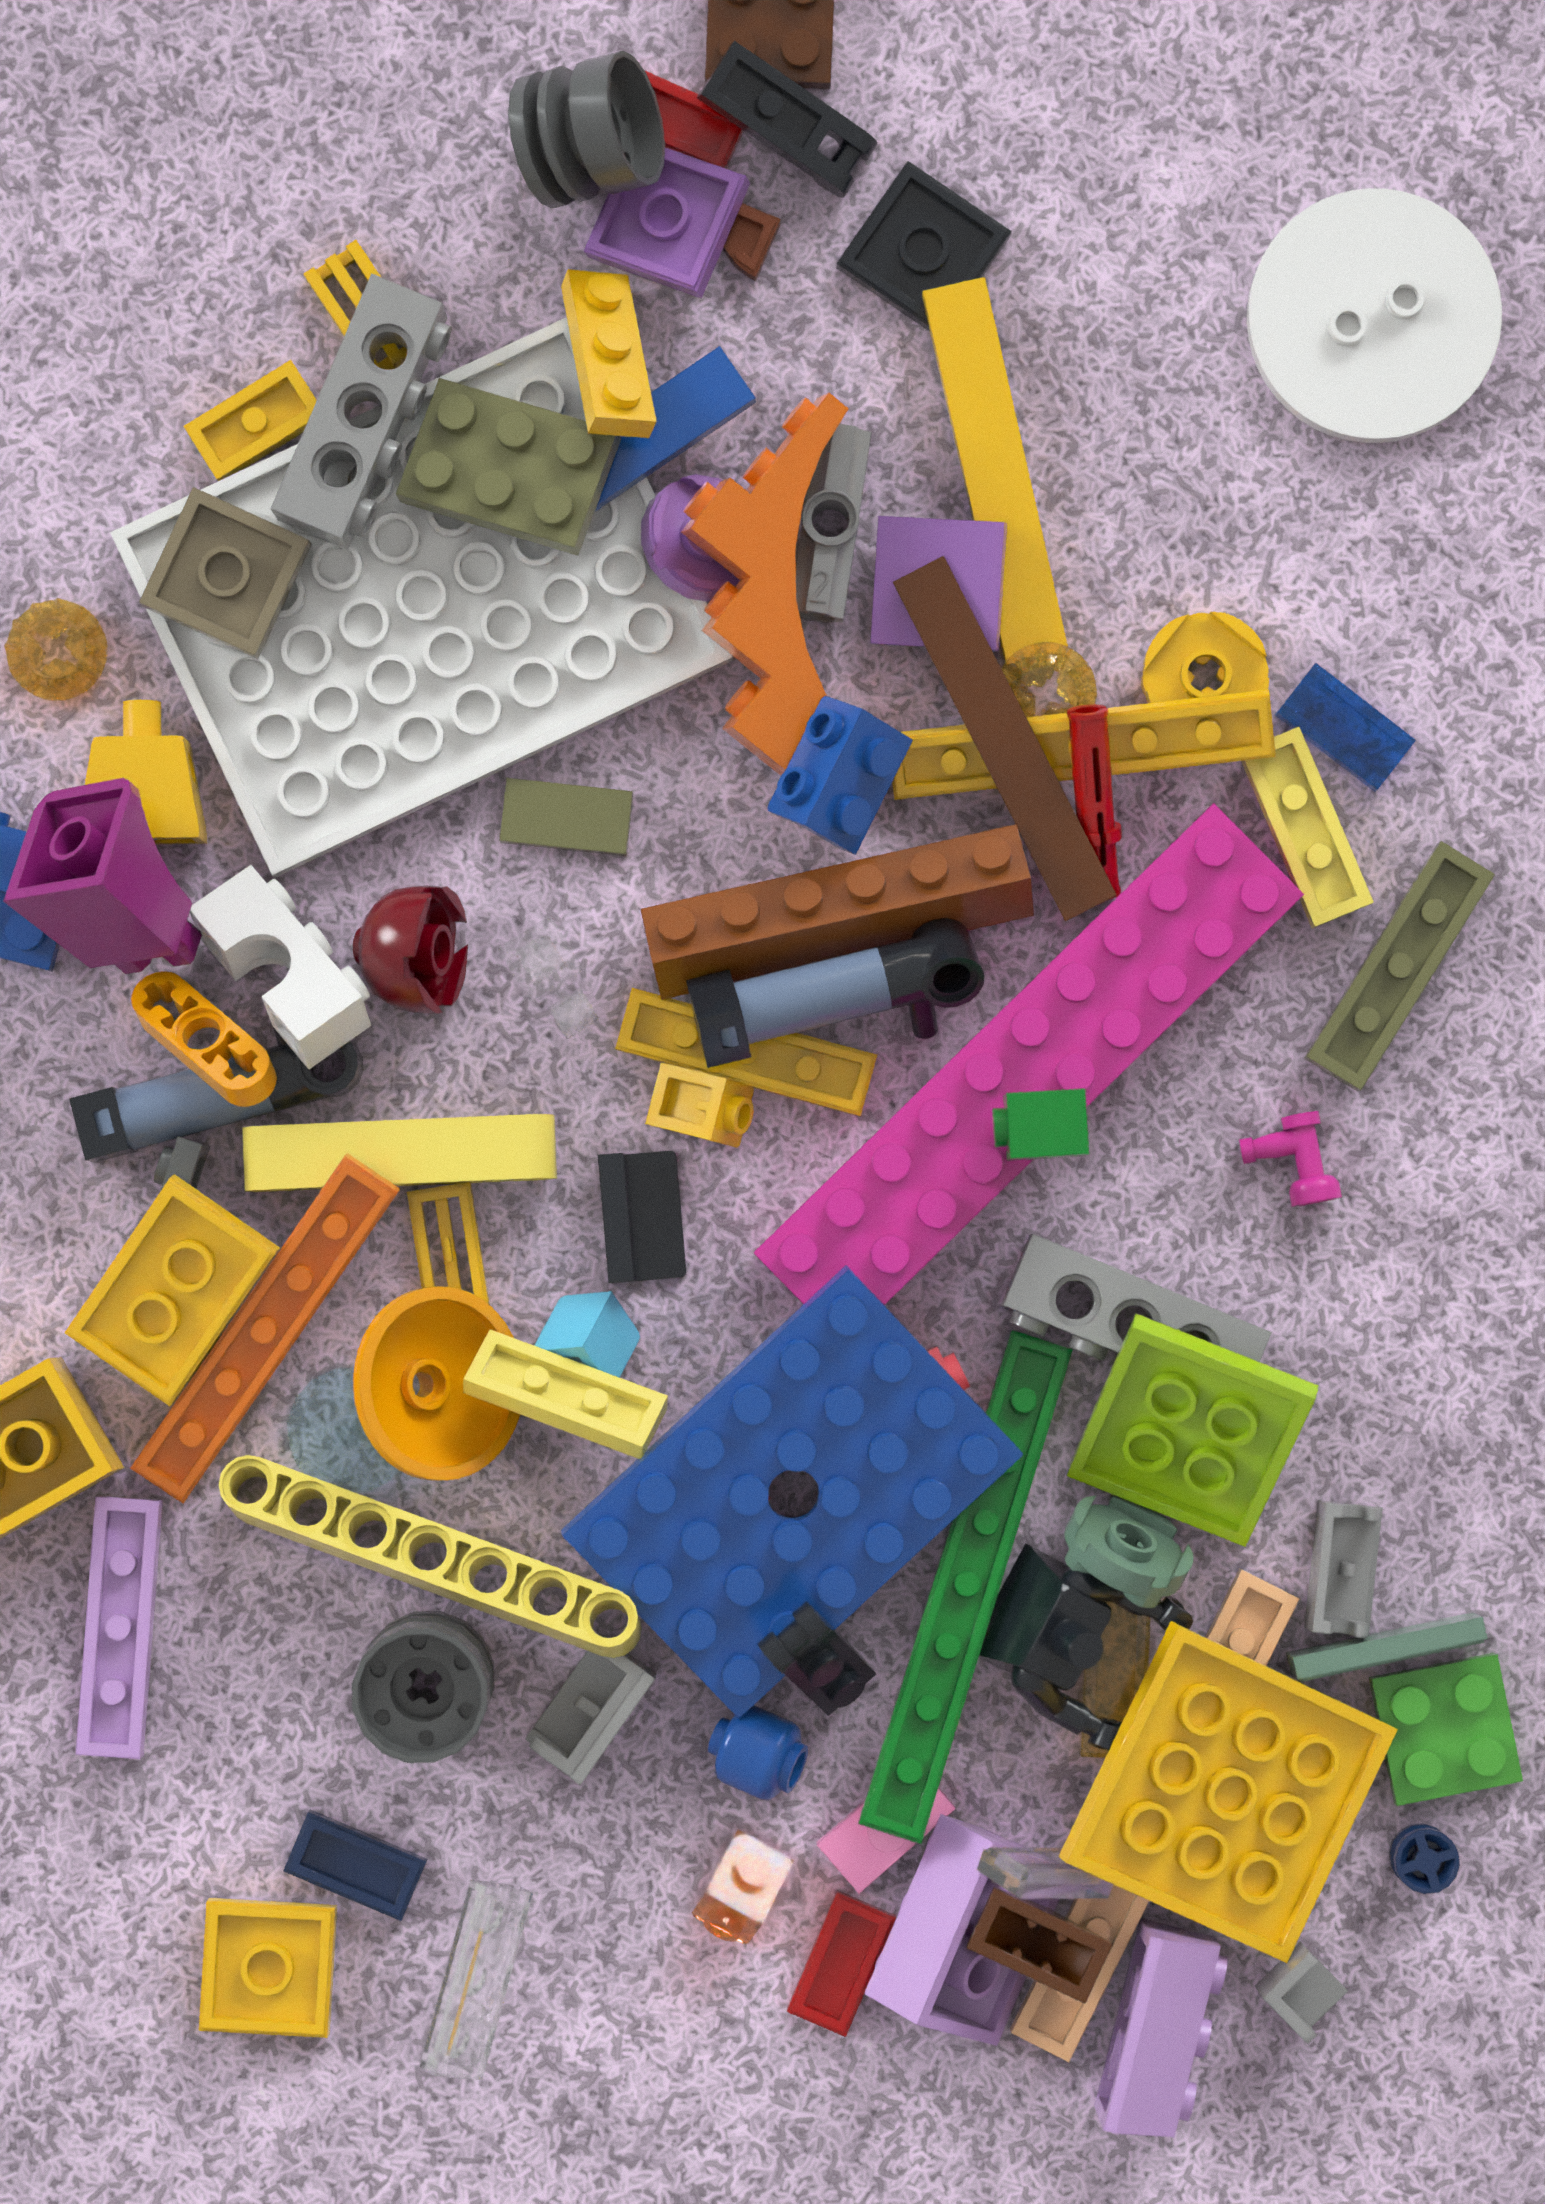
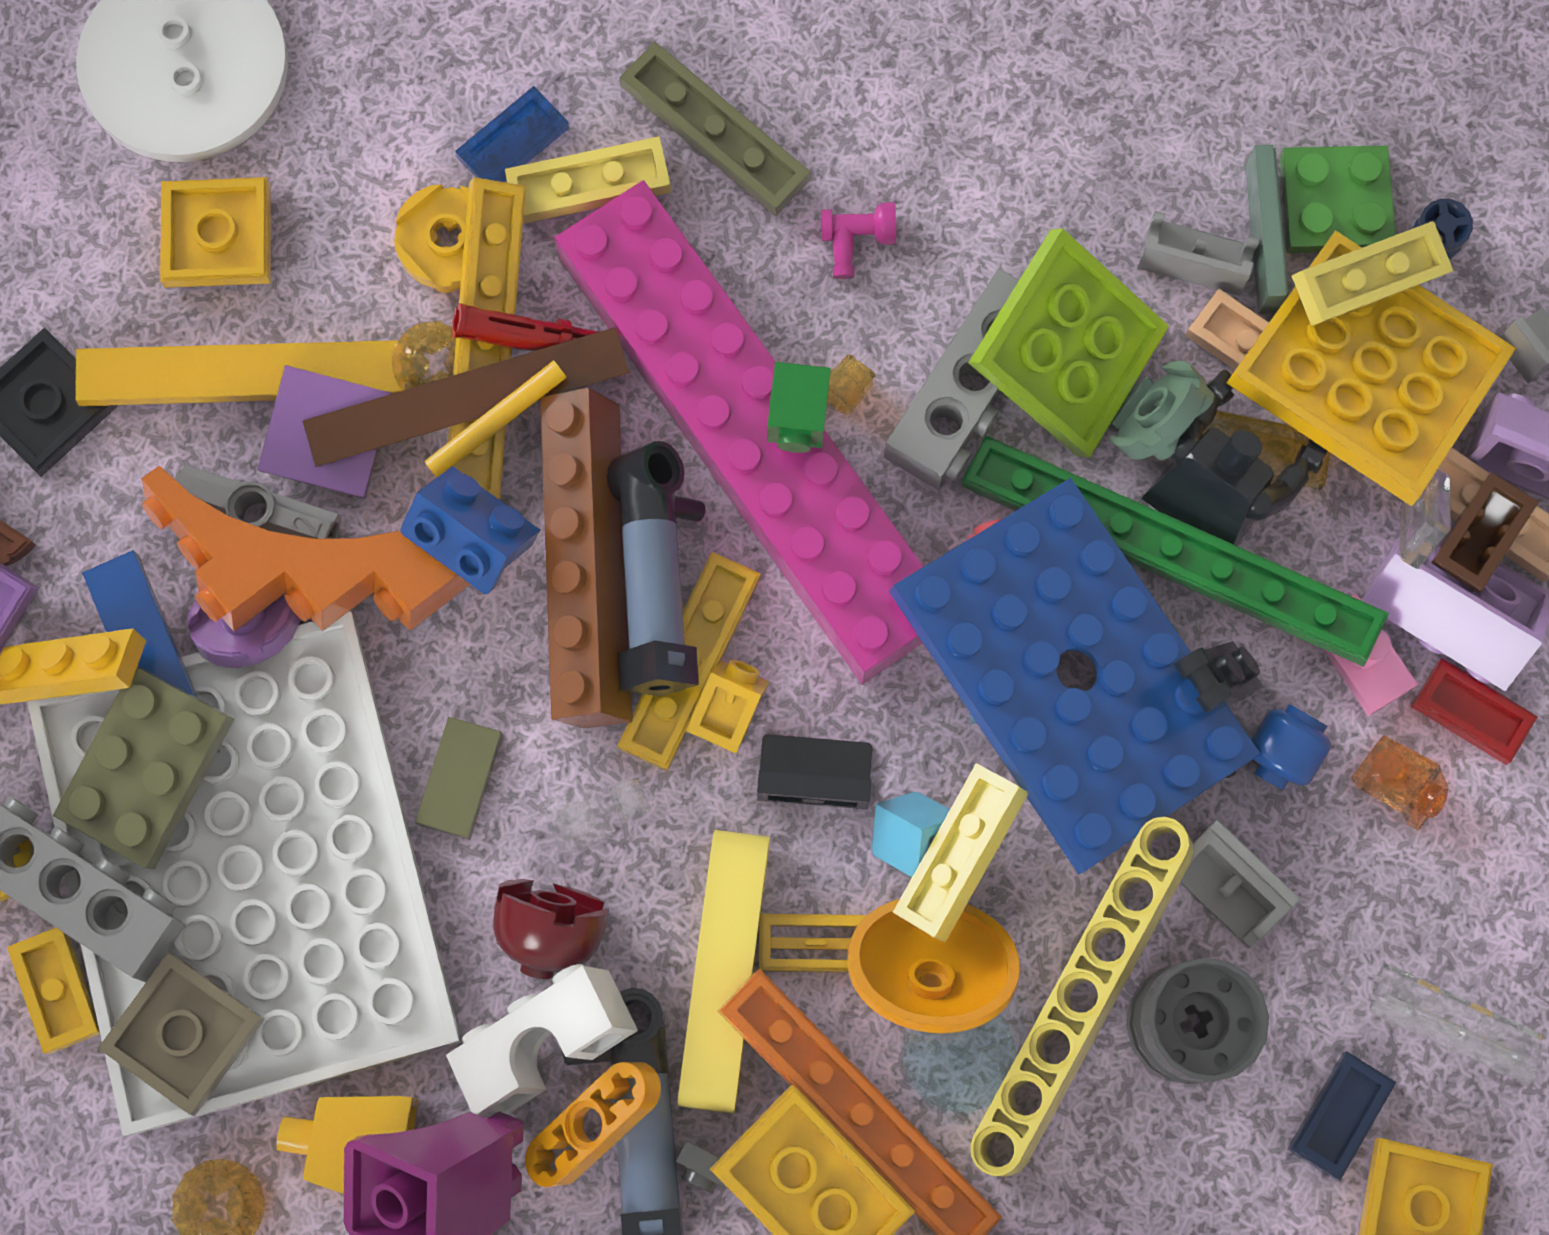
camera: 85 degrees left, 10 degrees down
(980, 778) = (495, 419): none -> yellow bar
(1105, 1177) = (849, 384): none -> clear yellow hose
(1163, 403) = (215, 232): none -> yellow plate
(1338, 1777) = (1372, 273): none -> light yellow plate

